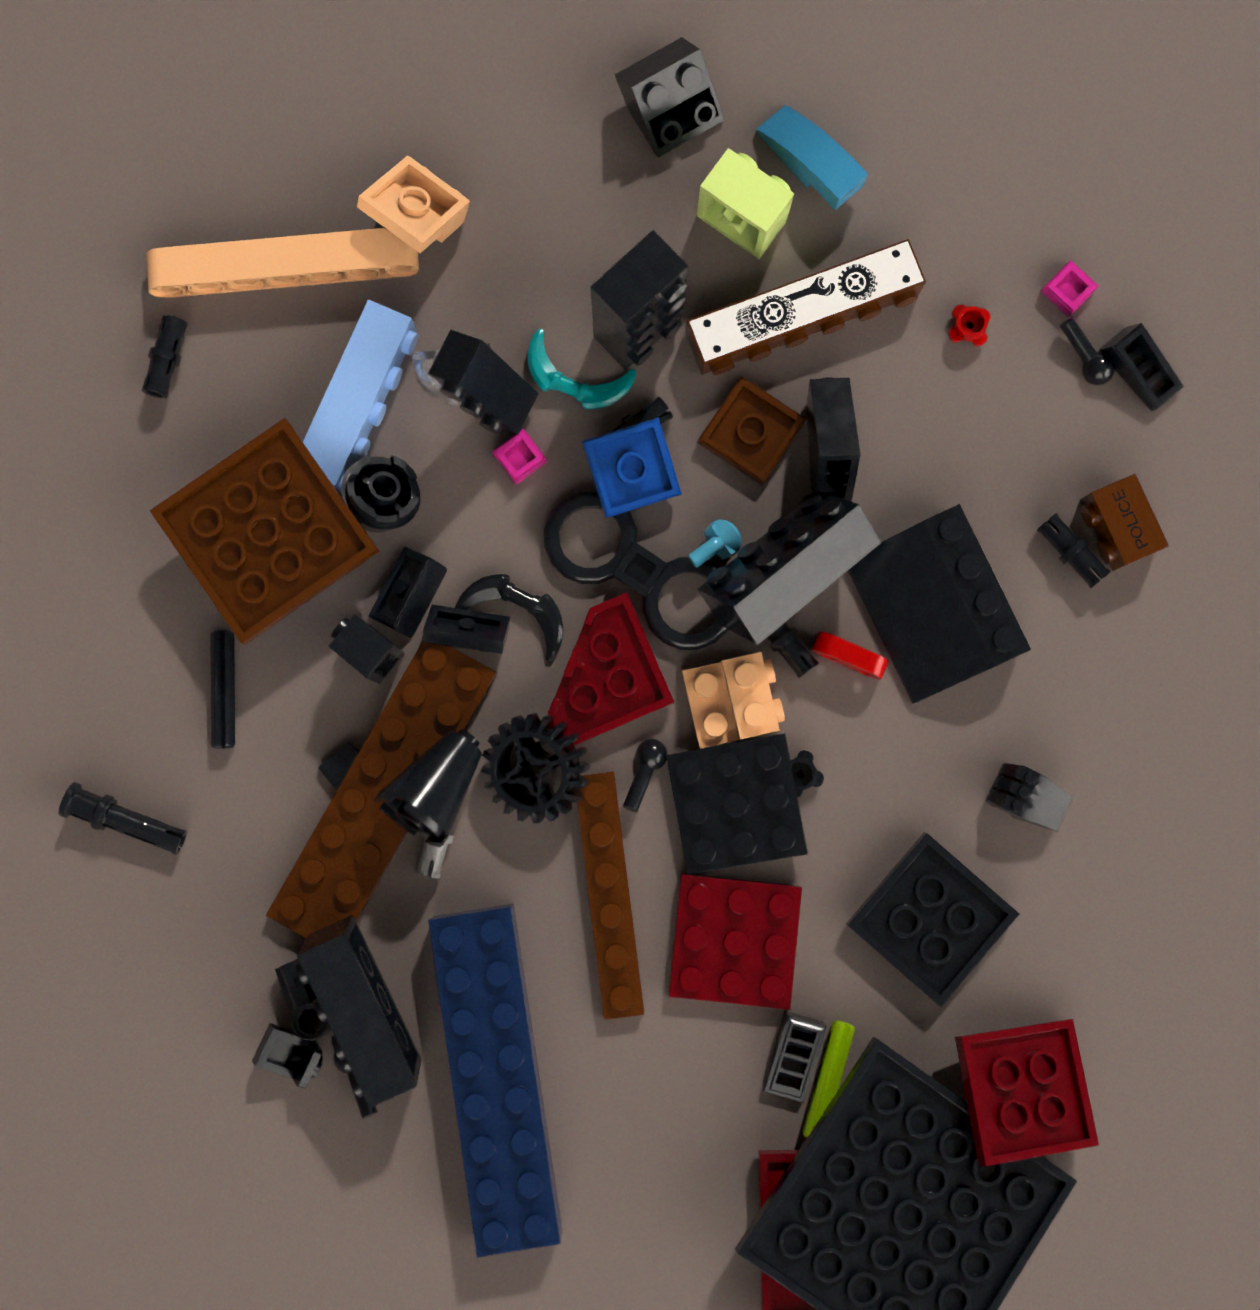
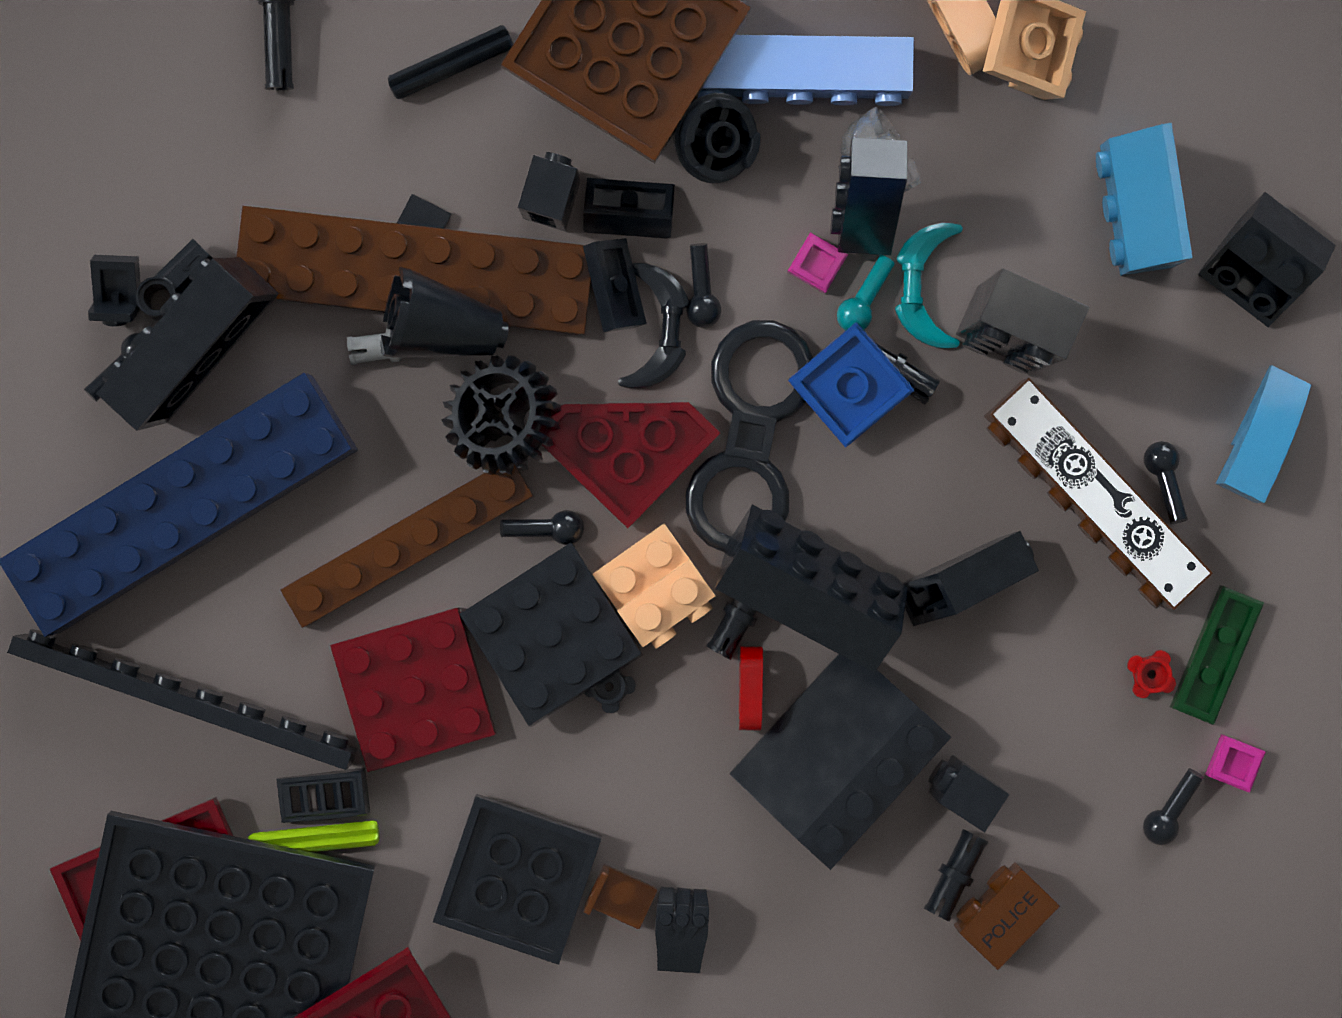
camera: 70 degrees right, 5 degrees up
(516, 564) = (703, 307): none -> black bar
(570, 437) = (859, 308): none -> teal bar
(581, 169) = (1144, 200): none -> dark azure slope
(652, 1155) = (166, 692): none -> black plate
(721, 540) = (815, 508): medium azure plate -> none
(744, 202) = (1180, 386): yellowish green brick -> none
(751, 430) = (945, 492): reddish brown tile -> none
(797, 247) = (1162, 460): none -> black bar
(974, 267) = (1216, 654): none -> dark green tile
(981, 838) = (620, 896): none -> reddish brown bracket
(1010, 510) = (967, 792): none -> black brick
(1132, 374) = (1169, 864): black slope -> none

